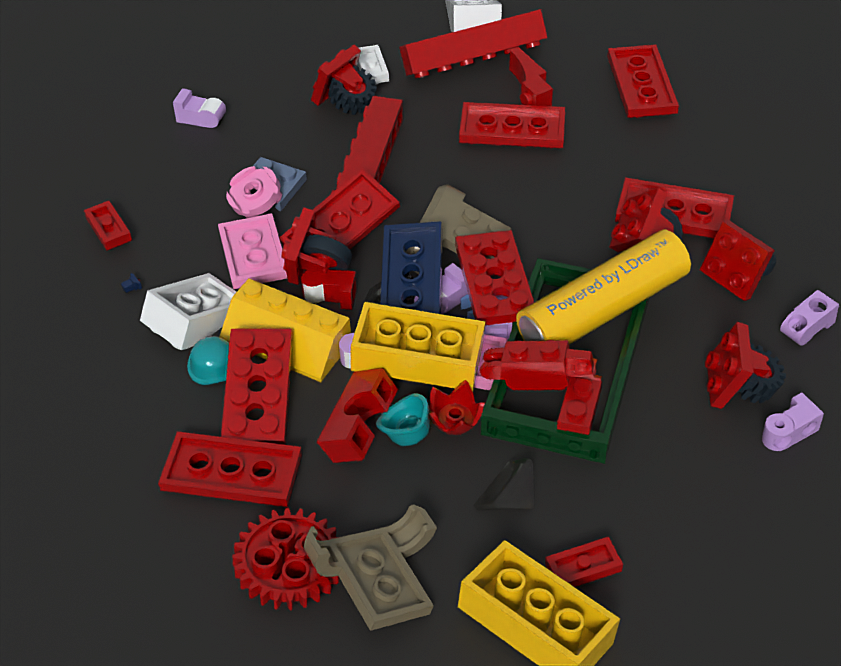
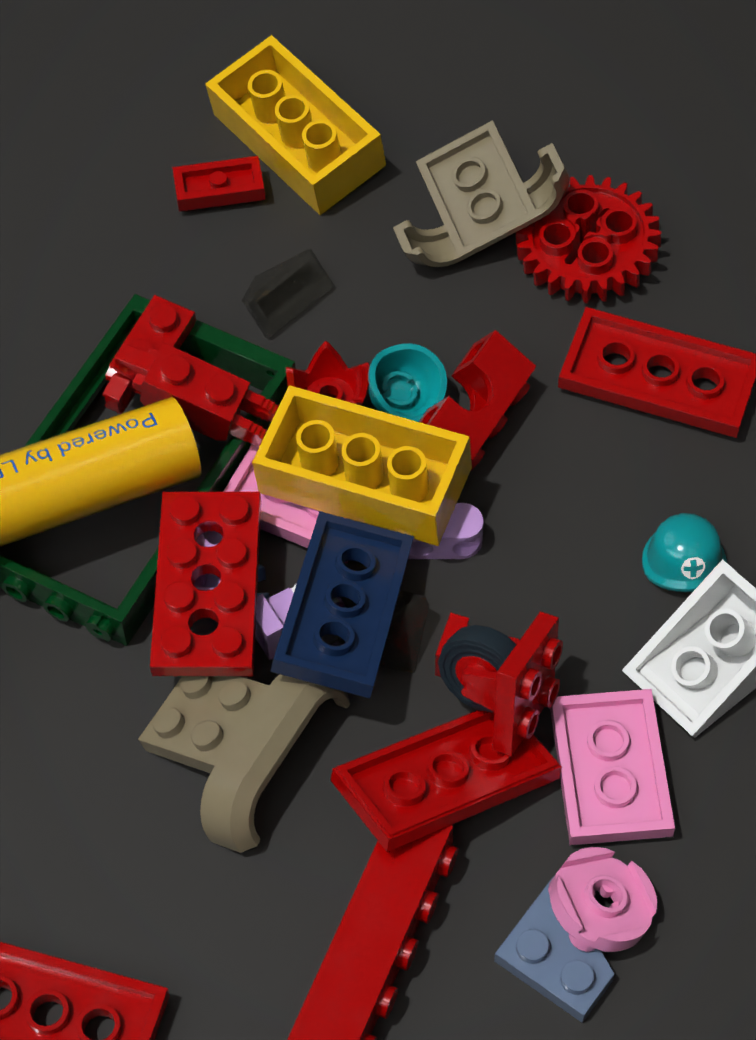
camera: 170 degrees left, 10 degrees up
(243, 372) = (637, 498): red plate -> none
(313, 327) = (546, 571): yellow slope -> none

